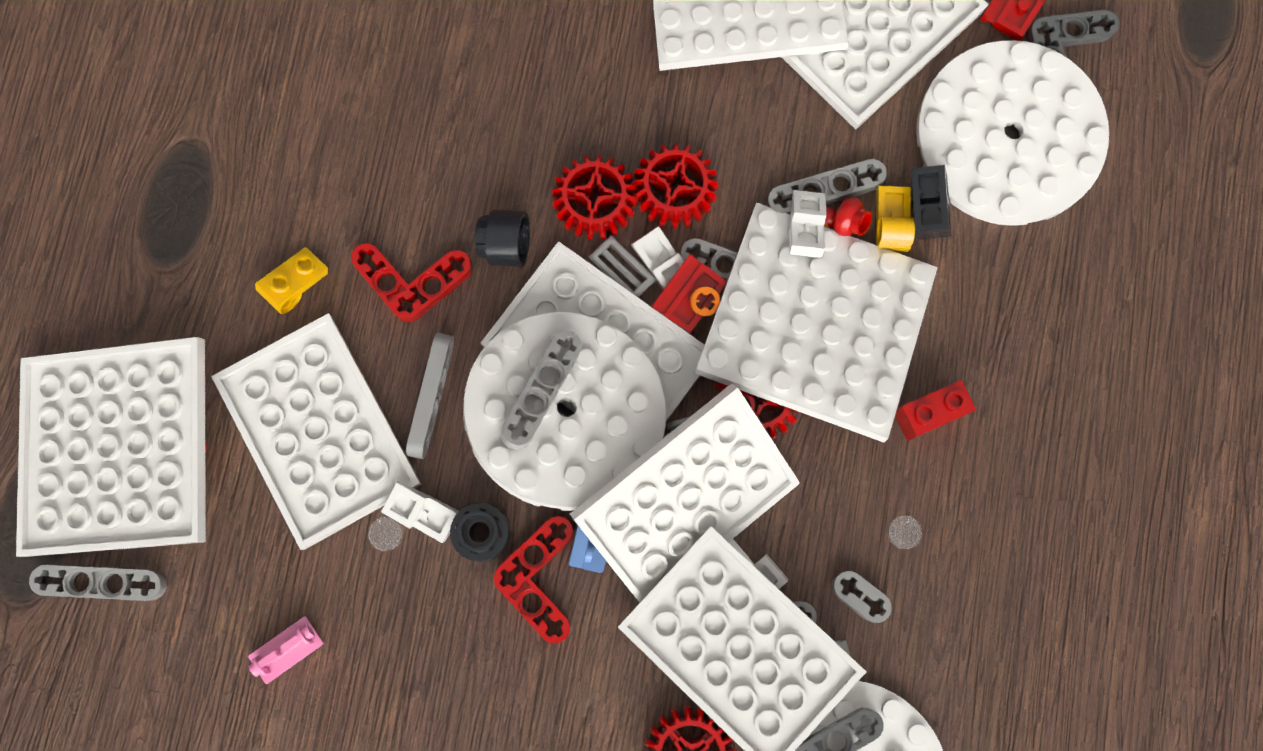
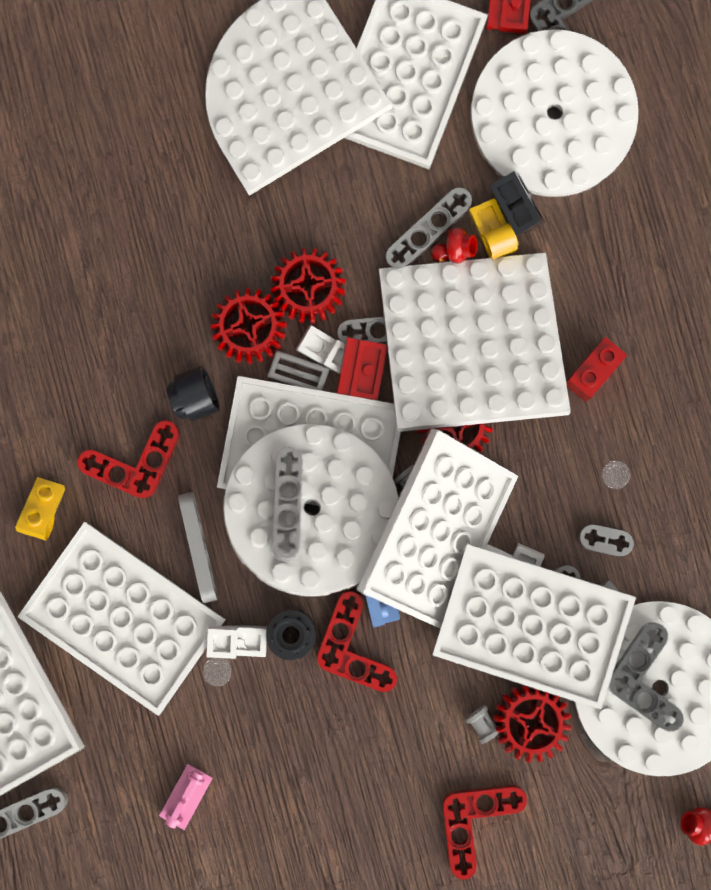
camera: 25 degrees left, 5 degrees up
(635, 729) = (482, 724): none -> light grey bush
(704, 291) = (374, 361): orange bush -> none
(807, 223) = (428, 268): white slope -> none

